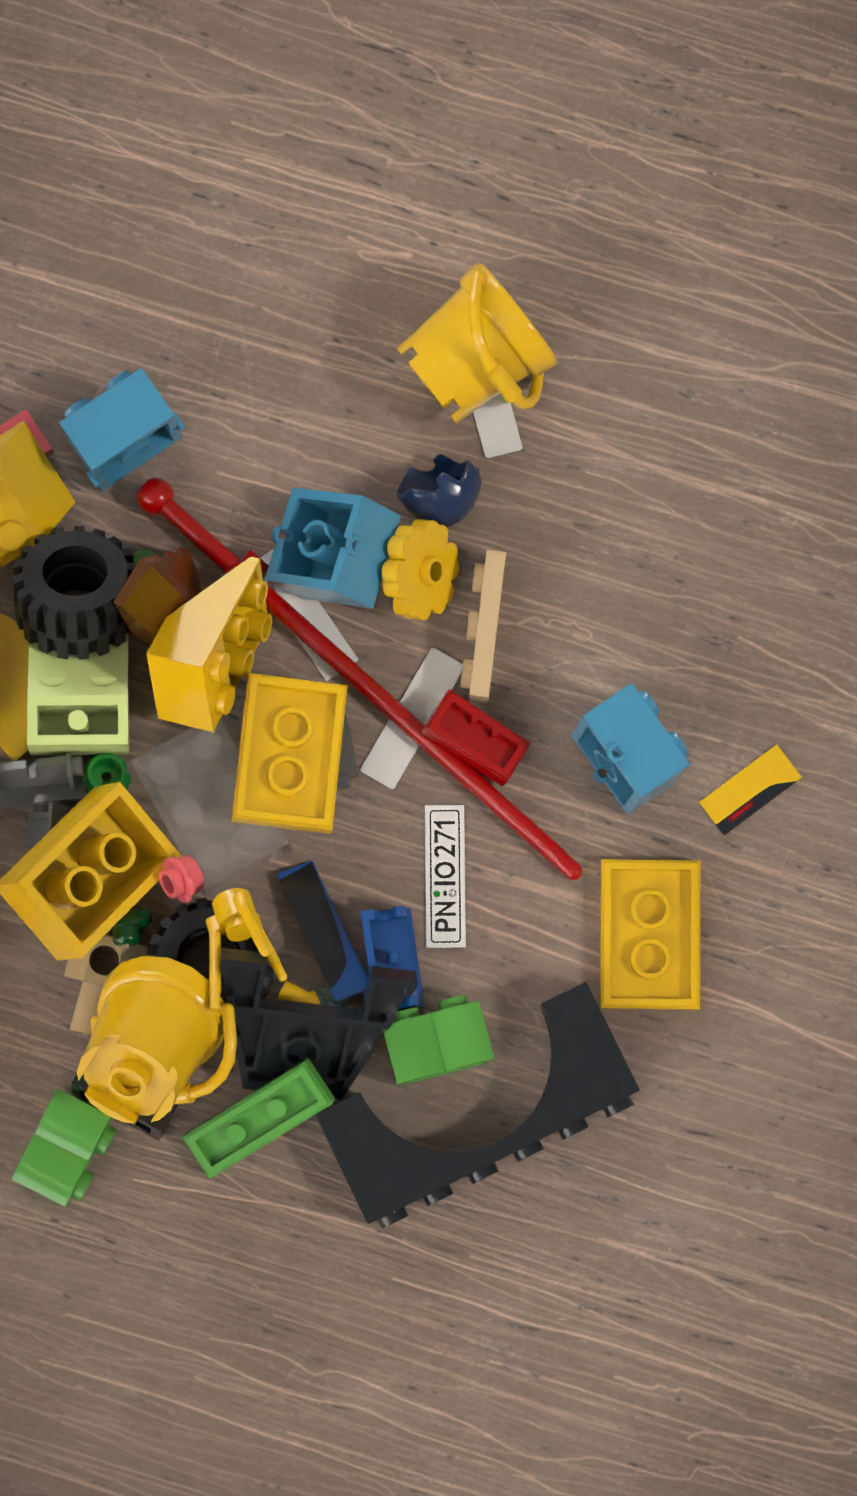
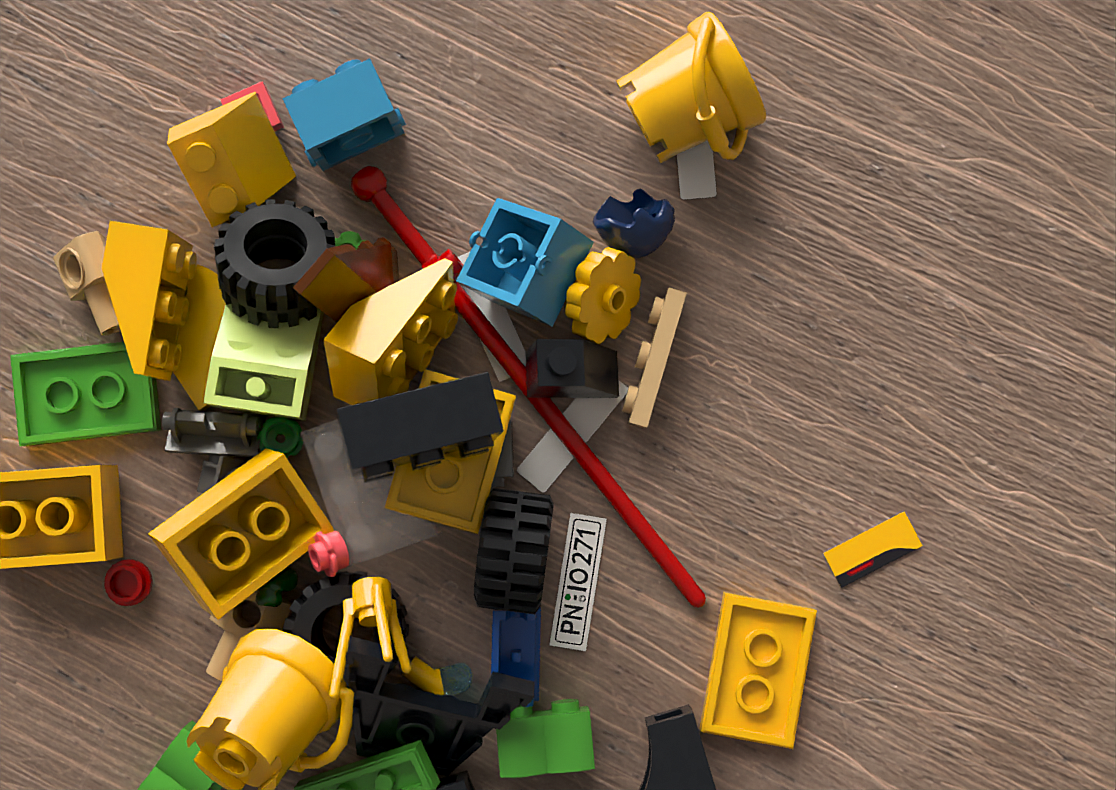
camera: 10 degrees right, 5 degrees up
(256, 725) = (420, 427): none -> black piece
(323, 930) = (457, 617): black sticker -> none
(371, 844) = (513, 551): none -> black tyre
(399, 652) = (571, 370): none -> black slope
(475, 738) = (628, 460): red plate -> none
(632, 747) = (775, 500): dark azure brick -> none

